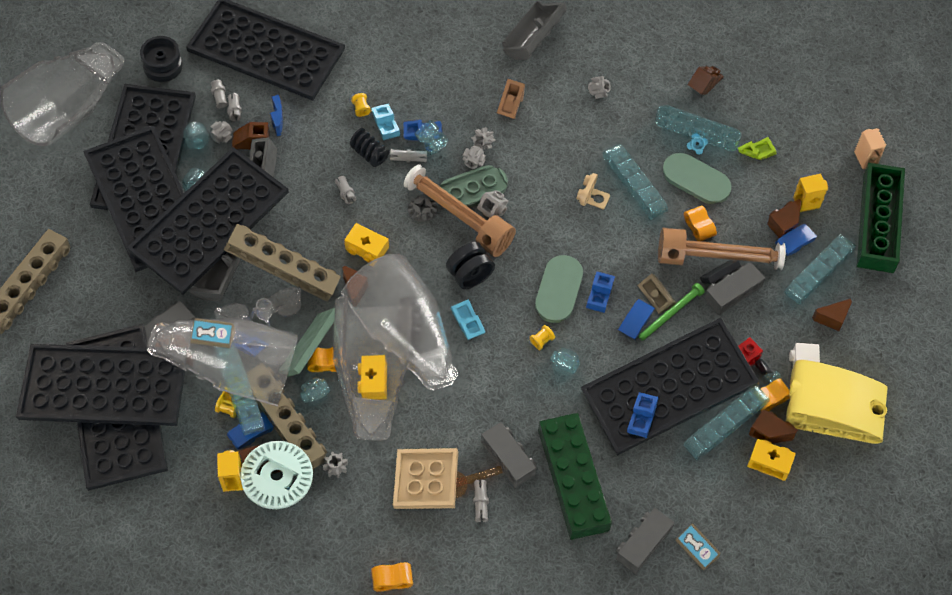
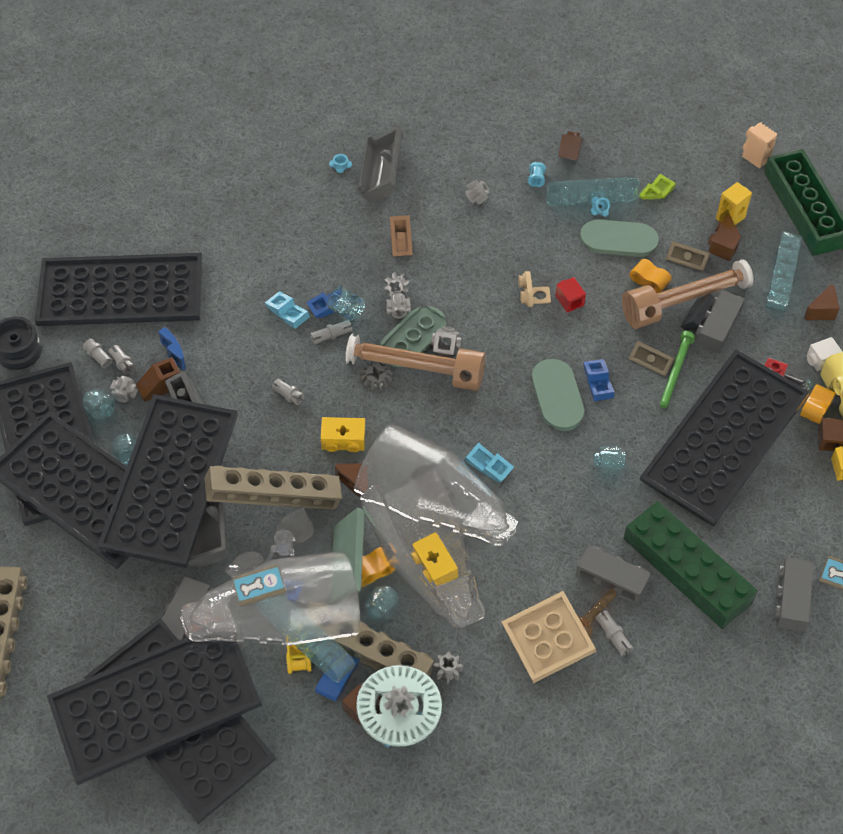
camera: 25 degrees left, 5 degrees down
(229, 470) = (346, 725): yellow brick -> none
(276, 466) = (401, 706): none -> light grey gear
(361, 106) = (253, 303): yellow bush -> none
(368, 147) = (286, 341): black piece -> none
(392, 577) = (576, 752): light orange axle -> none
(470, 265) = (463, 408): black wheel -> none
(502, 10) = (340, 163): none -> medium azure plate
(542, 337) = (572, 446): yellow bush -> none
(621, 209) = (570, 294): none -> red brick
(636, 181) = (566, 263): clear light blue beam -> none
(636, 319) = (649, 390): blue slope -> none
(642, 415) = (719, 474): blue slope -> none
(660, 93) = (536, 176): none -> medium azure bush
(726, 422) = (796, 447): clear light blue beam -> none
(745, 220) = (688, 256): none -> dark tan slope
(797, 238) = (745, 250): blue slope -> none

